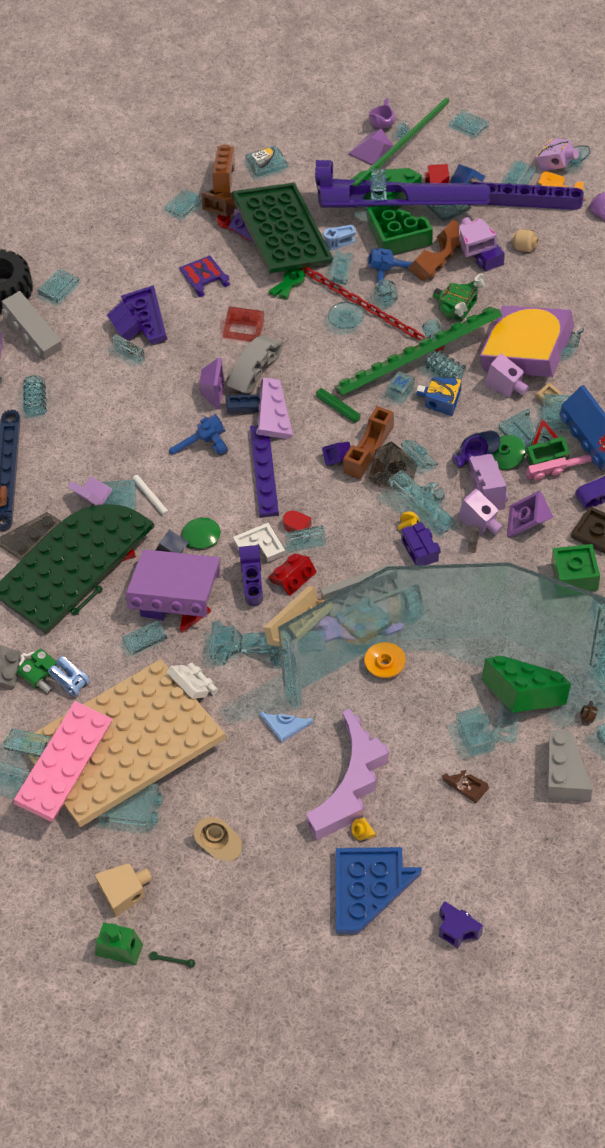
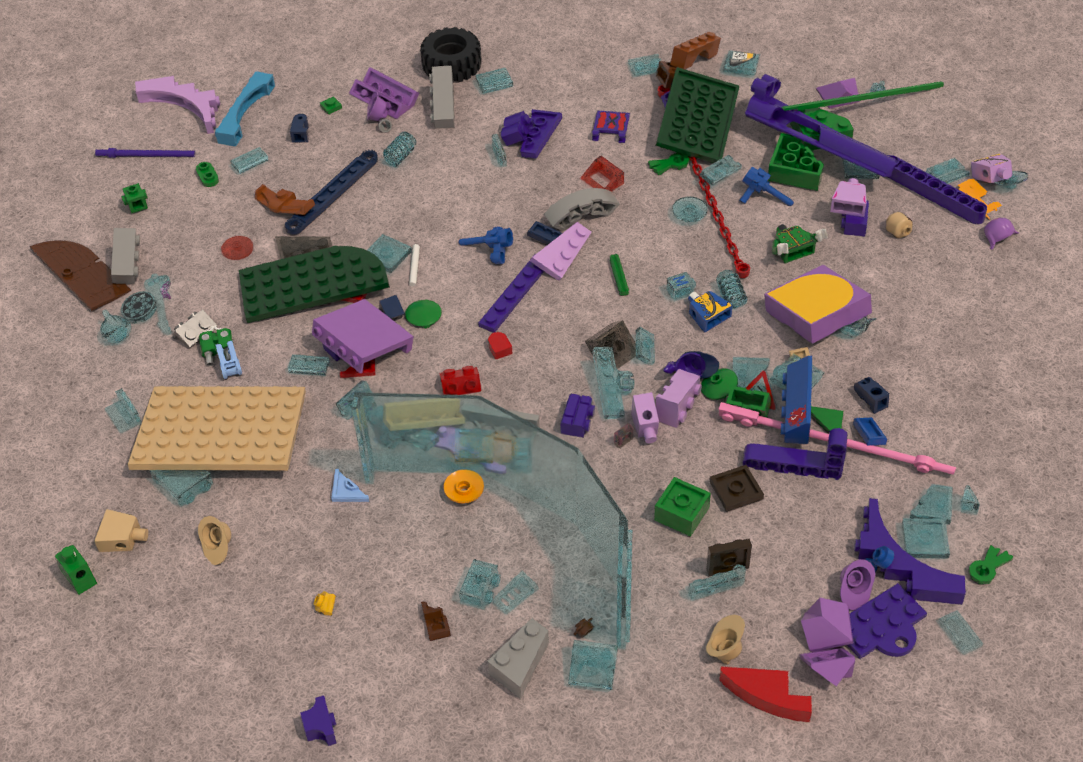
camera: 35 degrees right, 5 degrees down
(26, 742) = (155, 392): clear light blue plate -> none
(63, 761) = (158, 414): bright pink plate -> none
(75, 611) = (312, 312): dark green hinge -> none
(92, 491) = (369, 240): lavender panel -> none
(154, 956) = (96, 597): dark green hinge -> none
(192, 680) = (303, 415): white plate -> none
(212, 382) = (535, 206): medium lavender slope -> none
(251, 565) = (430, 354): dark purple piece -> none
(265, 538) = (461, 342): white plate -> none
(305, 538) = (493, 360): clear light blue plate -> none
(335, 452) = (581, 309): dark purple panel -> none
(339, 236) = (743, 147): light blue piece -> none
(359, 781) = (354, 564): lavender arch -> none
(360, 456) = (629, 308): dark orange arch -> none
(368, 884) = (286, 646): blue wing -> none
(378, 183) = (802, 115): clear light blue leg -> none
(382, 116) = (868, 70): medium lavender hair -> none
(385, 292) = (738, 207): clear light blue head -> none
(408, 519) = (587, 390): yellow plate -> none
(411, 353) = (726, 263): green plate -> none
(427, 262) = (794, 201): dark orange arch -> none
(431, 327) = (750, 254): clear light blue brick -> none
(437, 174) = (872, 137): red slope -> none
(464, 174) = (898, 146): blue panel -> none
(469, 123) = (942, 111): clear light blue plate -> none
(505, 377) = (772, 322): lavender torso -> none
(524, 685) = (550, 571): green brick -> none
(528, 513) = (687, 442): medium lavender slope -> none

